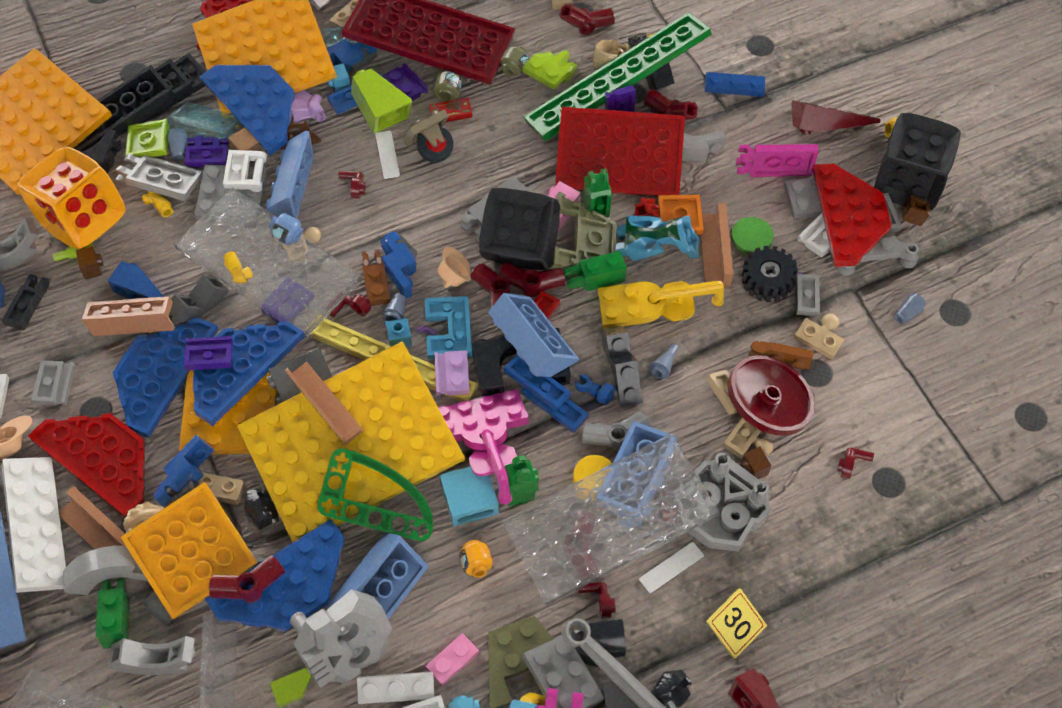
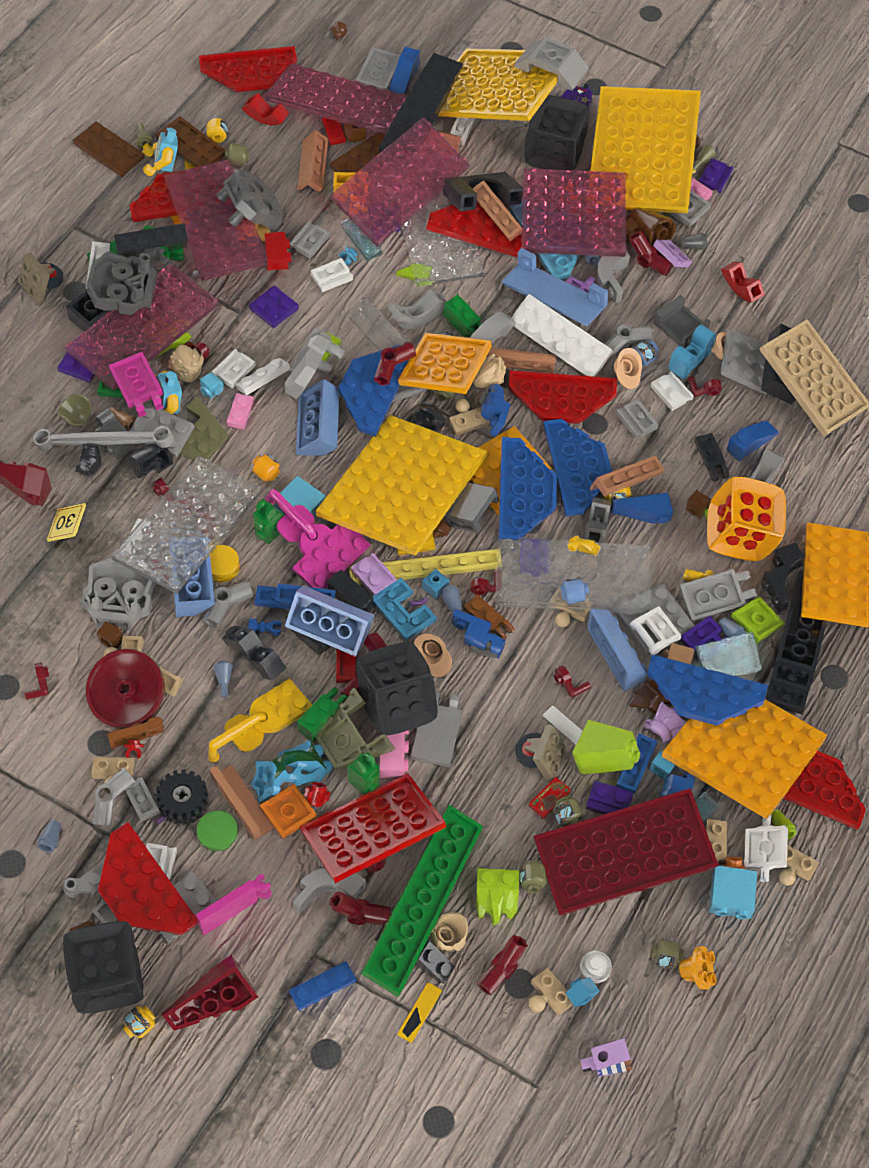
camera: 145 degrees right, 0 degrees up
(208, 353) = (545, 476): dark purple plate -> none
(325, 403) = (435, 480): nougat panel -> none
(364, 509) = (318, 462): green beam -> none
(621, 99) = (403, 876): dark purple plate -> none
(790, 340) = (134, 745): none -> red plate
(837, 307) = (104, 808): none -> light grey piece

